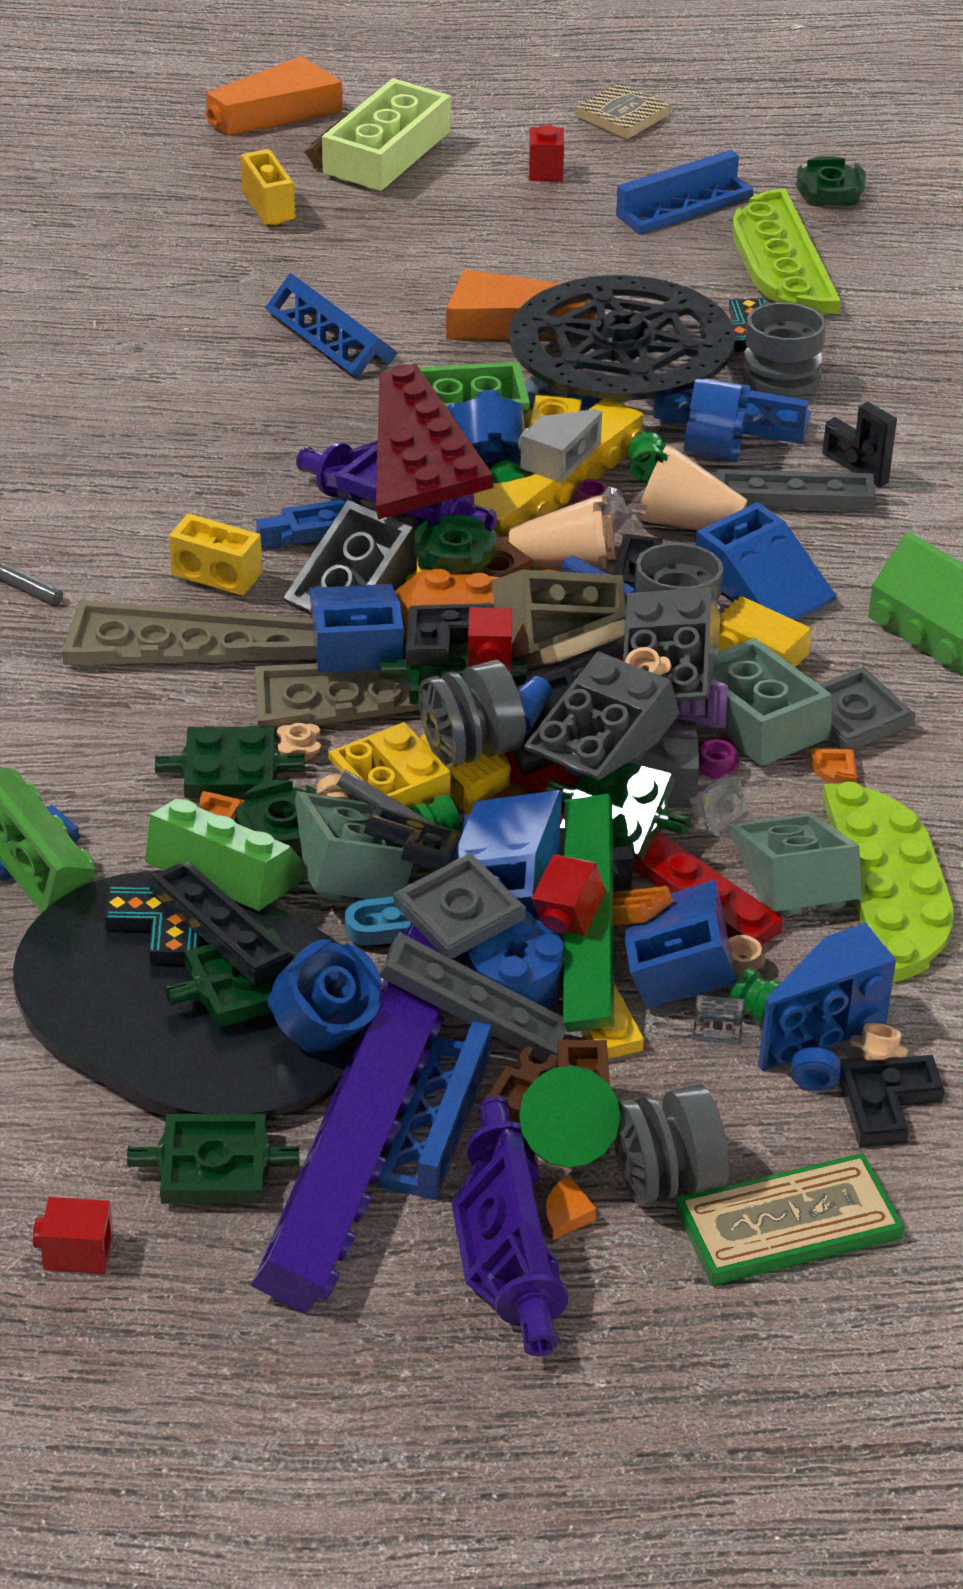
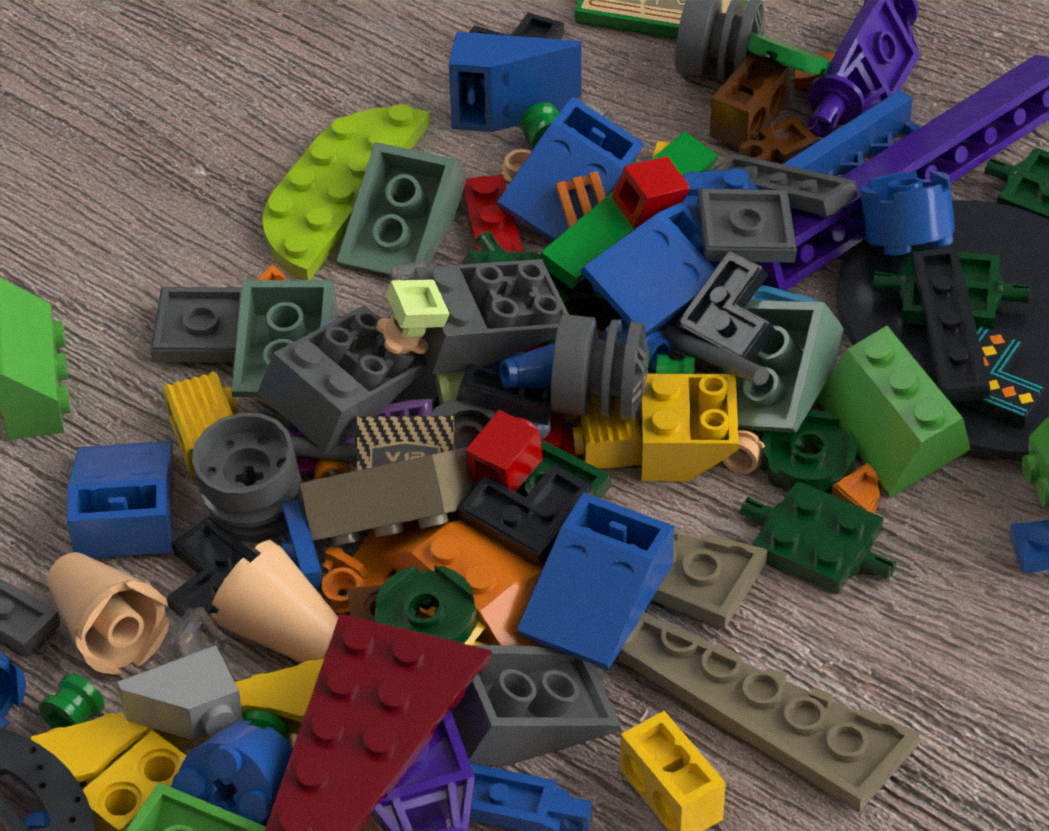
camera: 145 degrees left, 5 degrees up
(299, 739) = (735, 525): light nougat plate -> none
(633, 640) = (416, 306): none -> yellowish green tile

